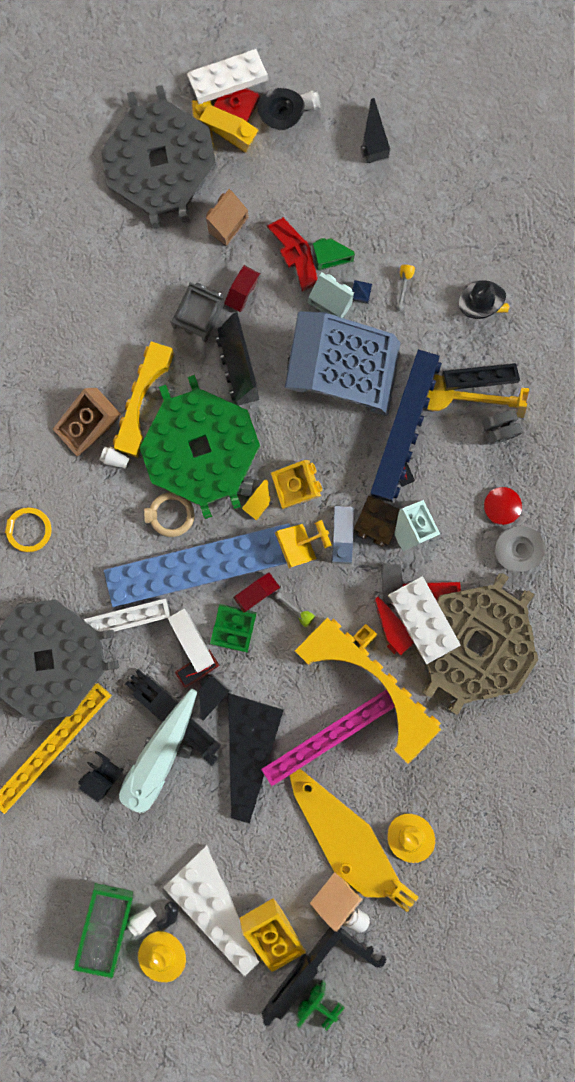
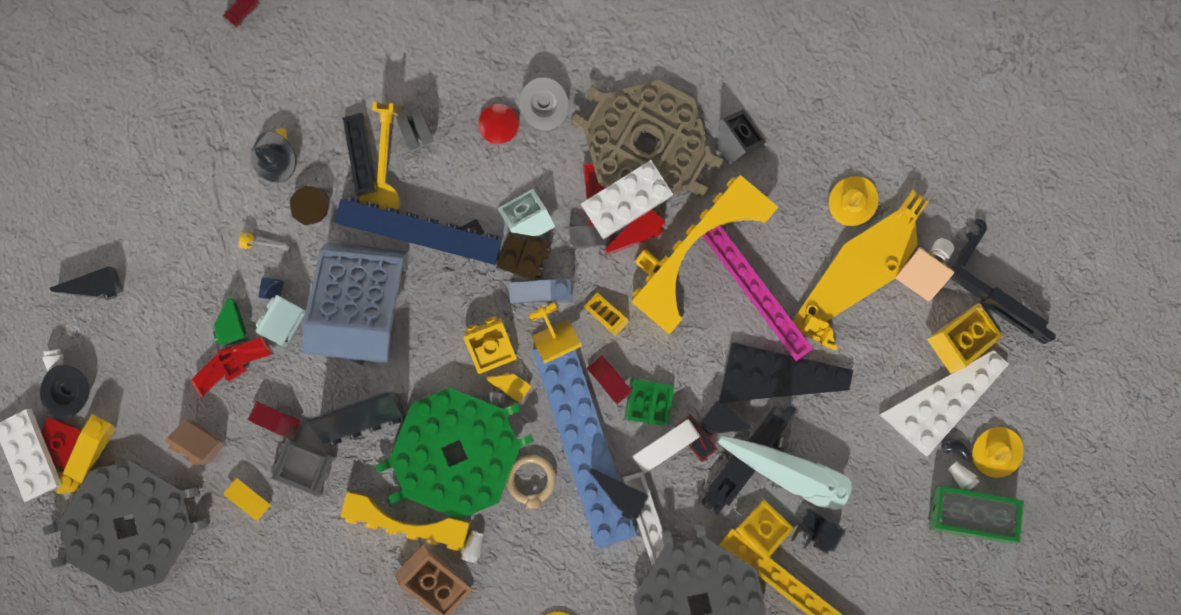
camera: 95 degrees left, 0 degrees up
(108, 726) = (765, 529): none -> yellow tile
(148, 596) = (625, 497): none -> black slope
(173, 261) = (246, 499): none -> yellow slope
(288, 794) = (819, 331): none -> yellow slope
(305, 617) = (632, 326): hinge -> none
(307, 605) = (618, 326): none -> yellow slope
(313, 1002) = (1033, 296): green plate -> none
(436, 329) = (309, 205): none -> dark brown hat
(478, 731) = (738, 137): none -> black slope

